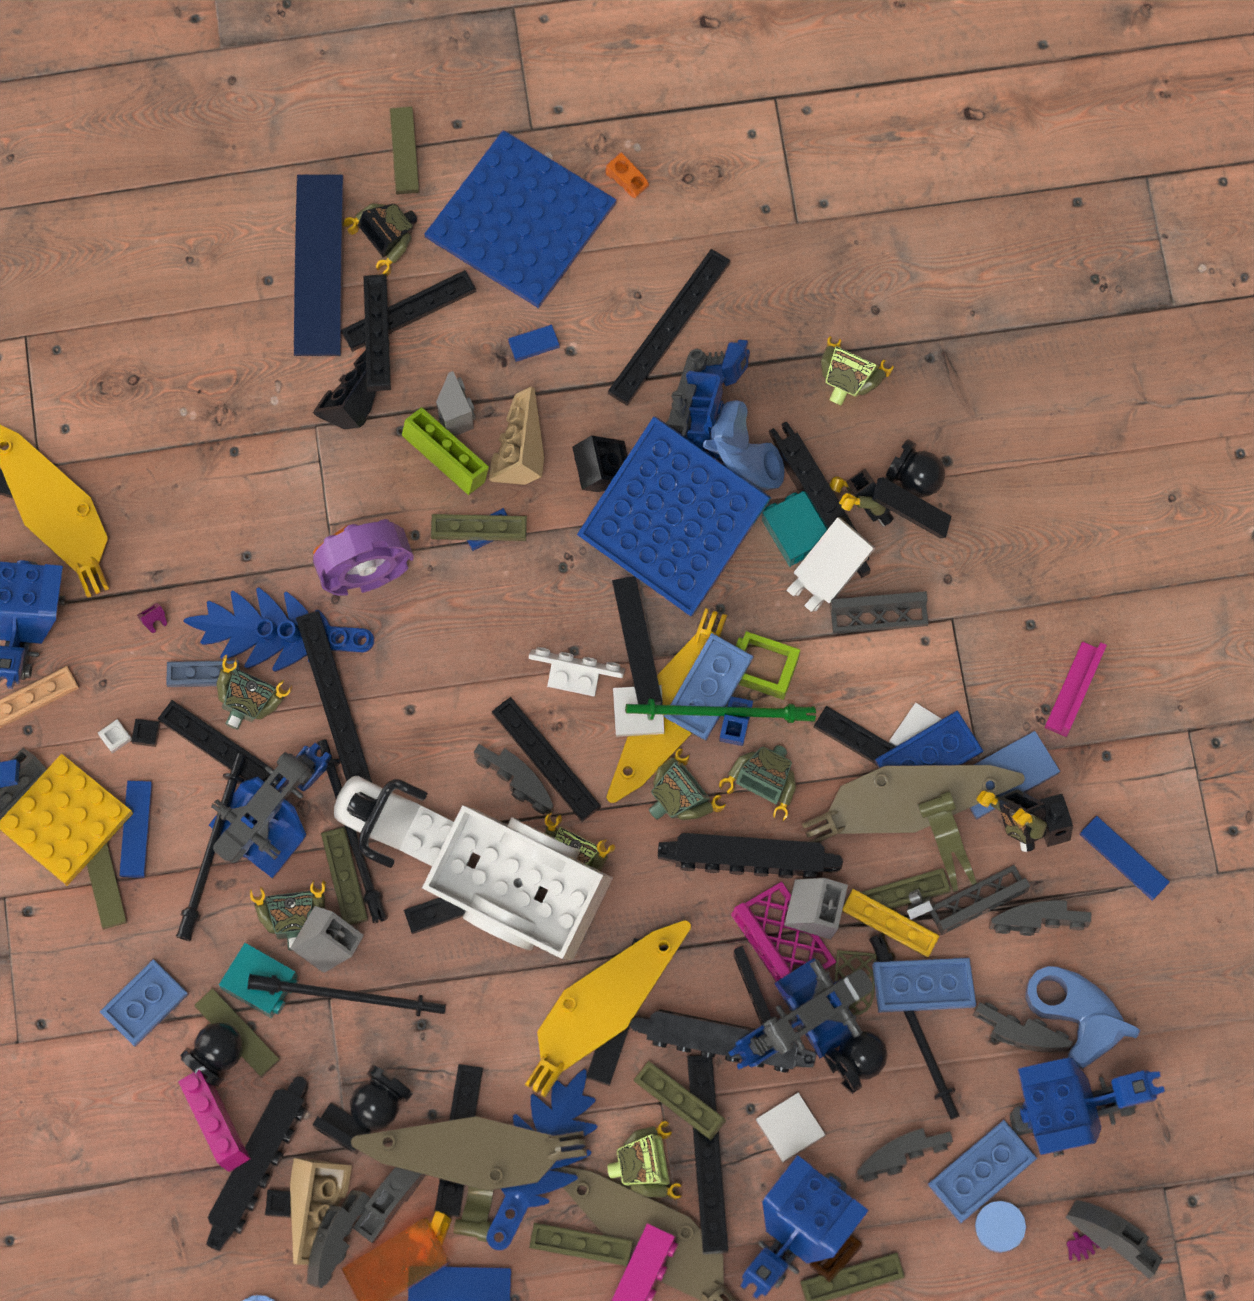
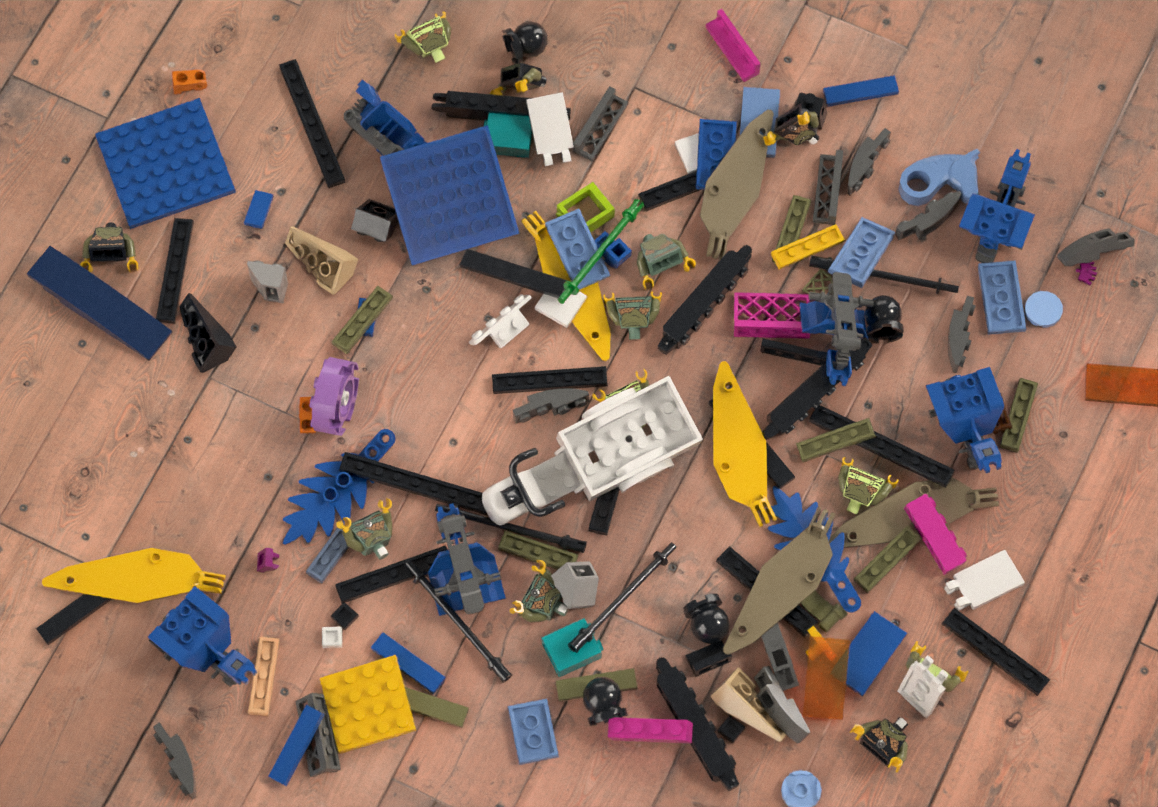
camera: 55 degrees left, 5 degrees down
(377, 333) = (178, 295): black tile -> none
(404, 150) = (59, 202): olive tile -> none
(445, 451) = (294, 306): lime brick -> none
(754, 462) = (433, 124): medium blue animal -> none
(790, 1127) = (897, 388): white tile -> none
(816, 906) = (768, 279): light grey slope -> none
(911, 507) = (549, 57): black tile -> none
(919, 905) = (809, 221): flat silver tile -> none
(947, 835) = (775, 176): olive flag -> none

